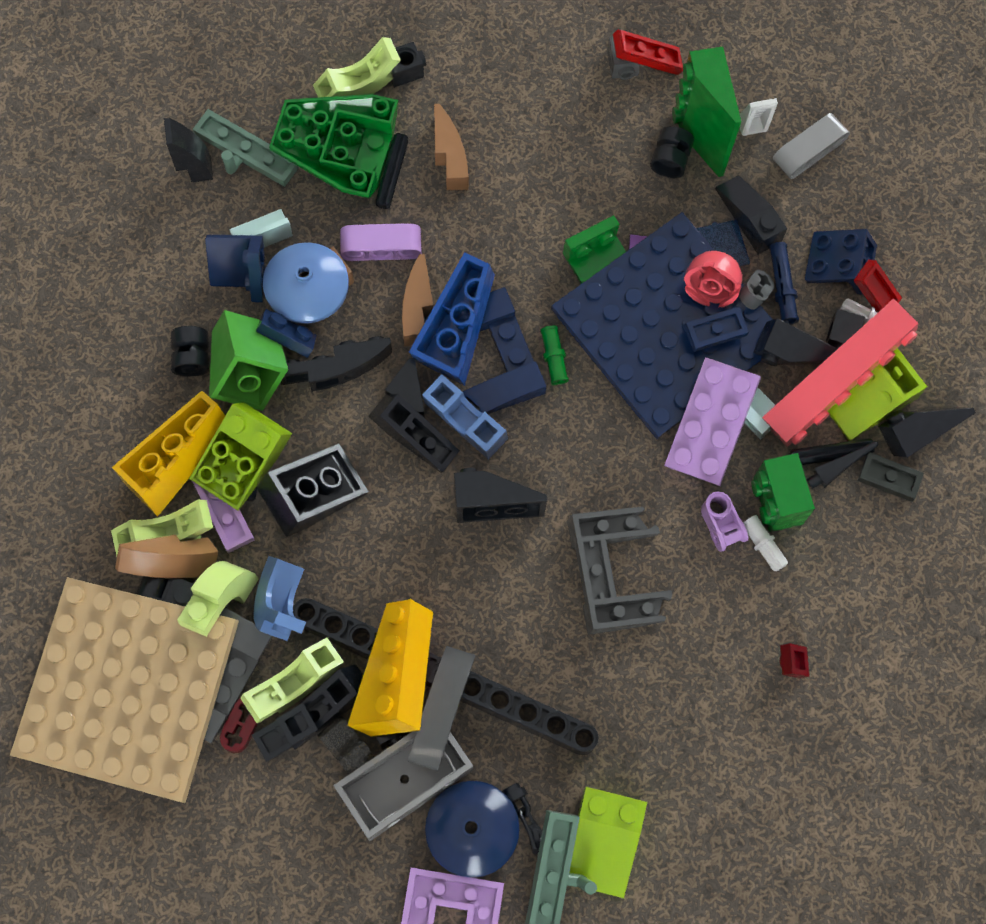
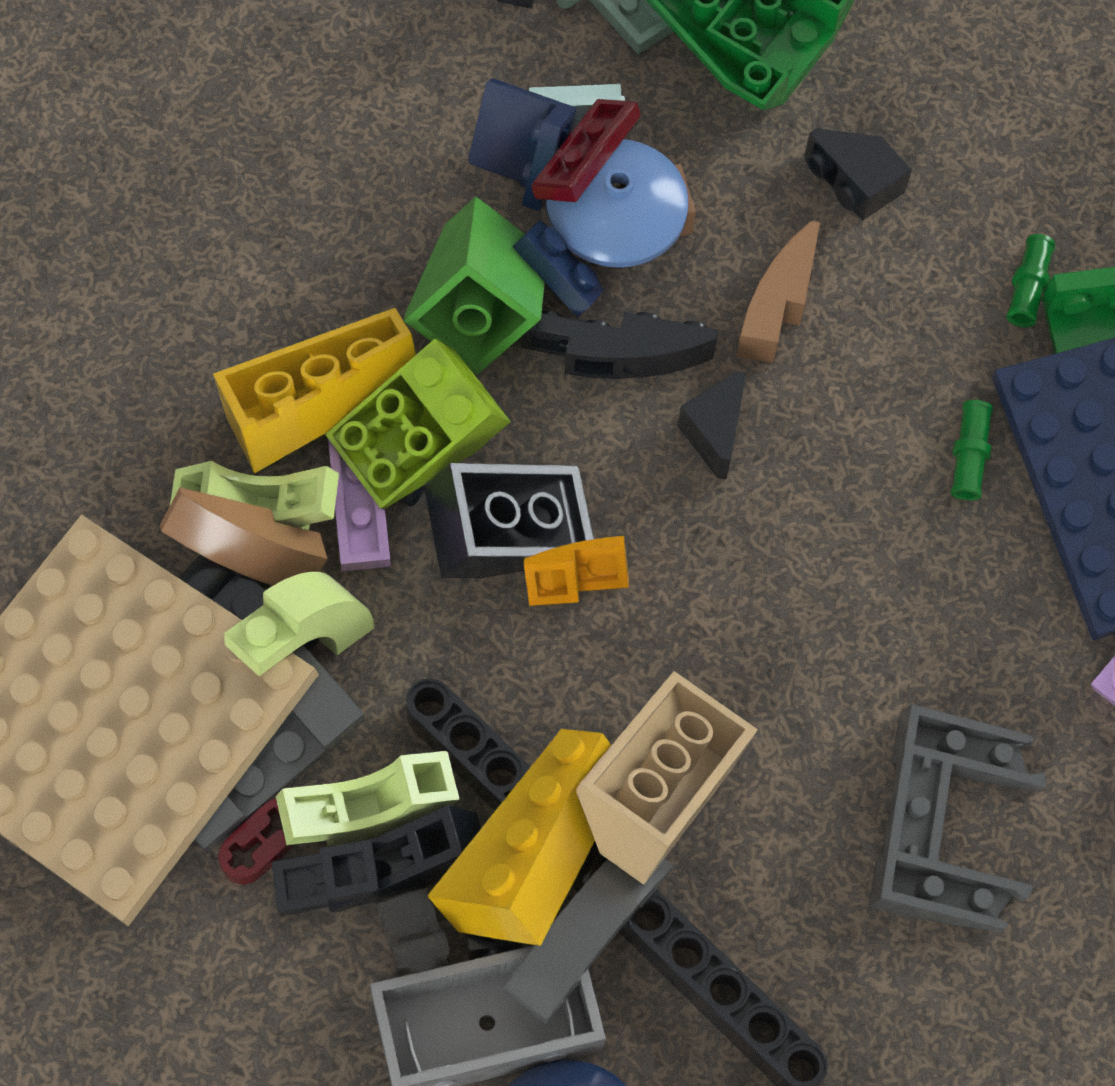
camera: 20 degrees right, 5 degrees down
(189, 351) = (399, 245): black wheel -> none
(275, 599) = (390, 662): medium blue arch -> none
(277, 260) = (586, 150): none -> dark red tile
(354, 507) = (581, 566): none -> light orange slope
(380, 242) = (757, 184): lavender beam -> none
(392, 171) = (814, 86): black axle -> none
(413, 431) = (702, 488): black slope -> none
(435, 212) = (858, 168): none -> black slope
(450, 151) = (917, 85): medium nougat slope -> none
(450, 607) = (661, 775): none -> tan slope
(455, 321) = (831, 339): blue wedge -> none
(464, 418) = (780, 475): medium blue arch -> none
(491, 497) = (795, 634): black slope -> none
(522, 374) = (909, 464): dark blue wedge -> none
(553, 244) = (1030, 280): none -> green pin

